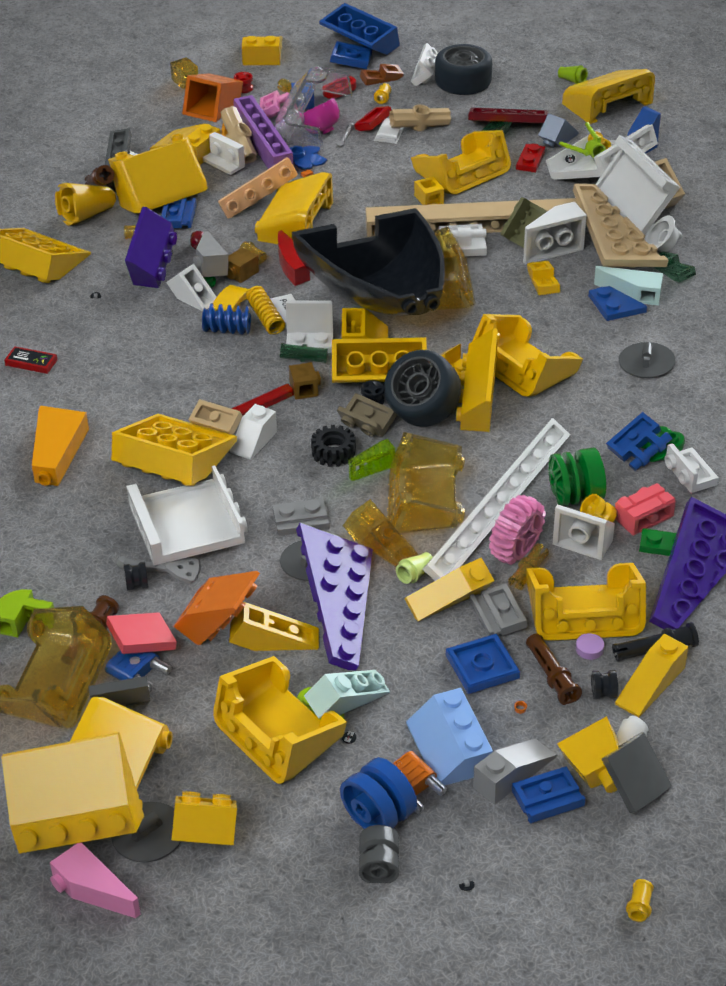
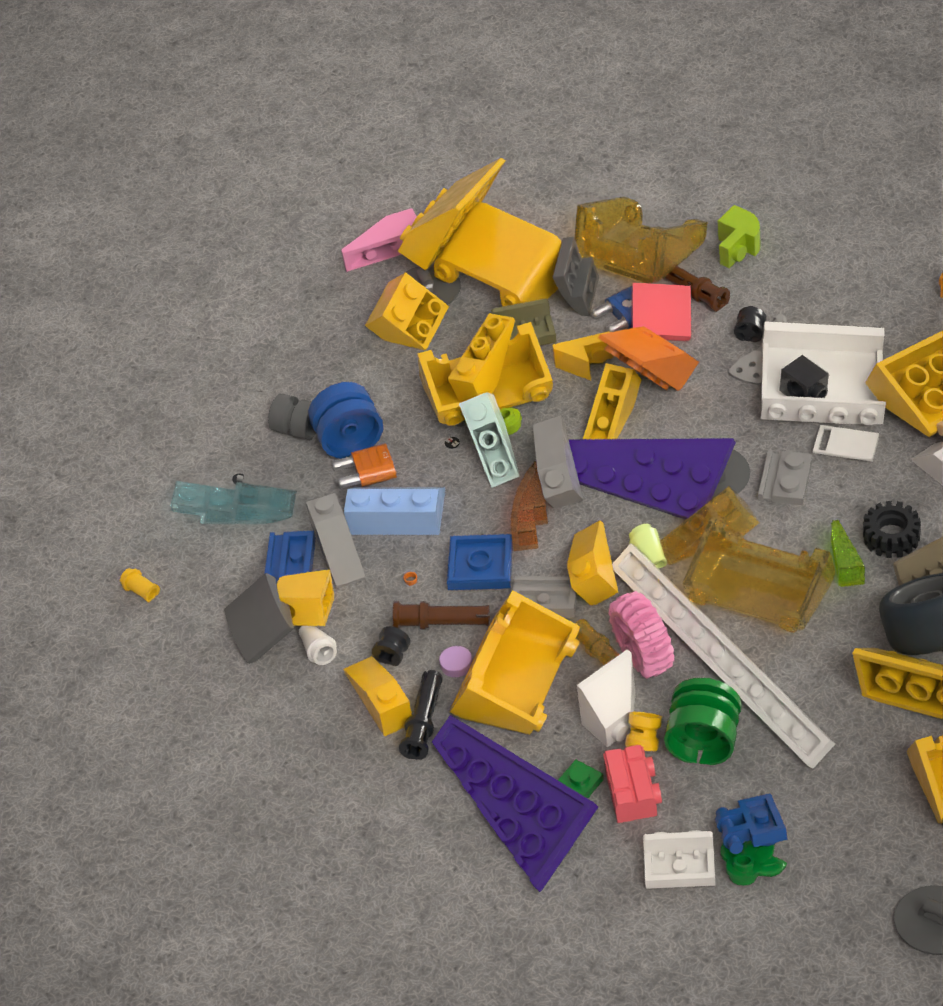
camera: 120 degrees right, 5 degrees up
(190, 725) = (535, 312): none -> olive bracket
(208, 669) = (578, 354): none -> yellow slope
(209, 510) = (804, 379): none -> black brick
(250, 492) = (848, 443): none -> white piece
(265, 709) = (483, 359): none -> yellow slope
(364, 632) = (556, 463): none -> light grey slope
(409, 647) = (528, 511): none -> clear orange slope
(508, 861) = (228, 506): none -> clear light blue slope

